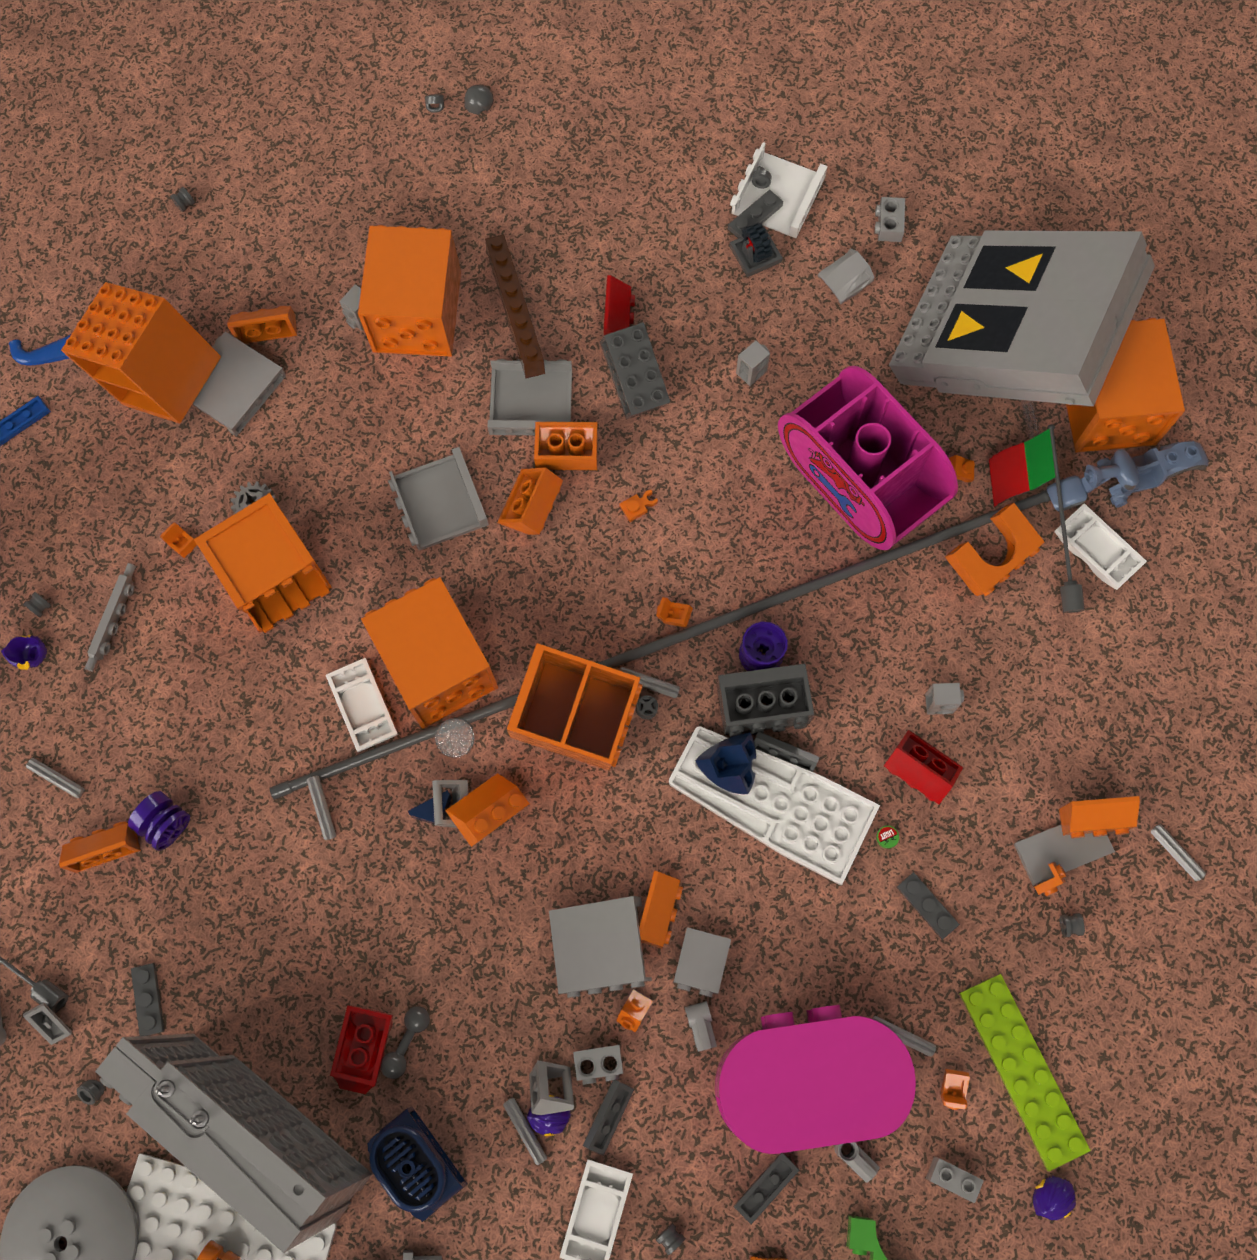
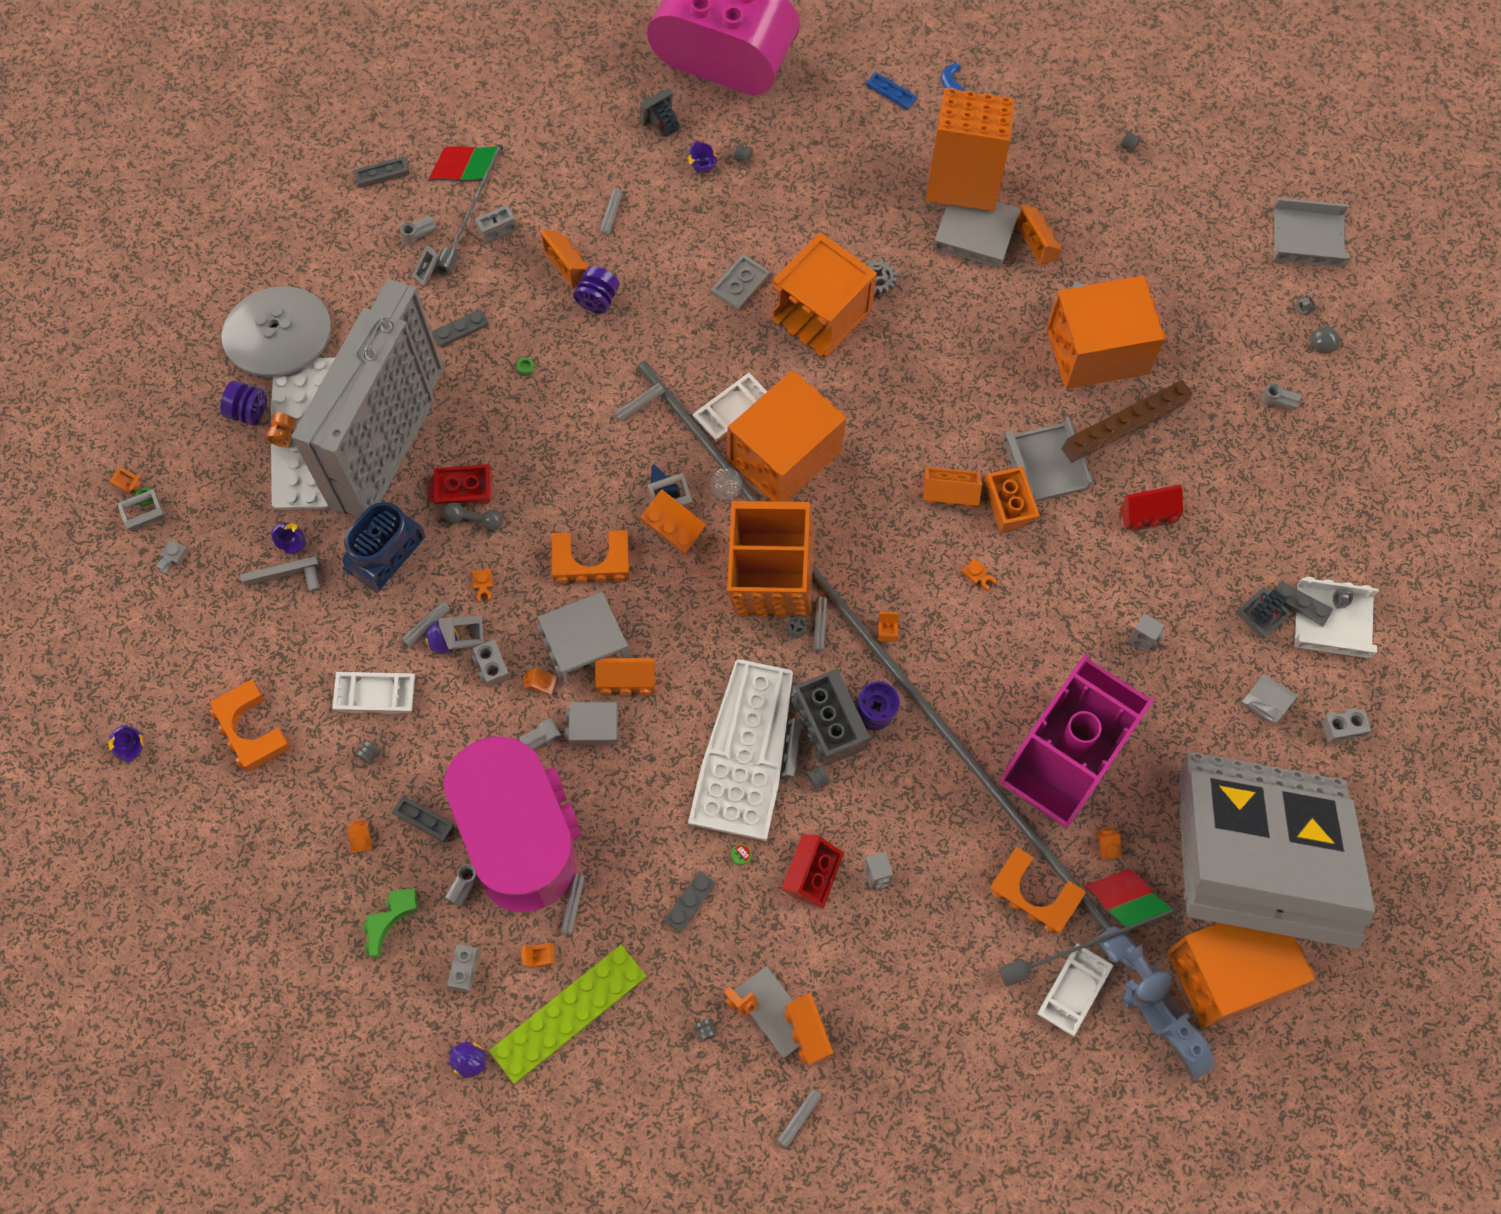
camera: 70 degrees right, 5 degrees down
(22, 921) = (495, 224): none -> light grey brick
(109, 622) = (749, 206): light grey plate -> none
(178, 540) = (831, 229): orange bracket -> none
(204, 654) = (740, 282): none -> light grey tile
(227, 932) = (525, 366): none -> bright green tile
(353, 71) = (1310, 232): none -> light grey panel
(438, 501) = (927, 414): light grey panel -> none
(490, 1049) = (483, 581): none -> orange plate
(503, 946) = (613, 567): none -> orange arch
(529, 159) = (1280, 396): none -> light grey piece
(608, 1117) = (450, 682): dark grey plate -> none
(634, 370) = (1096, 530): dark grey brick -> none
(730, 763) = (765, 702): dark blue brick -> none
(823, 732) = (818, 777): none -> dark grey wheel

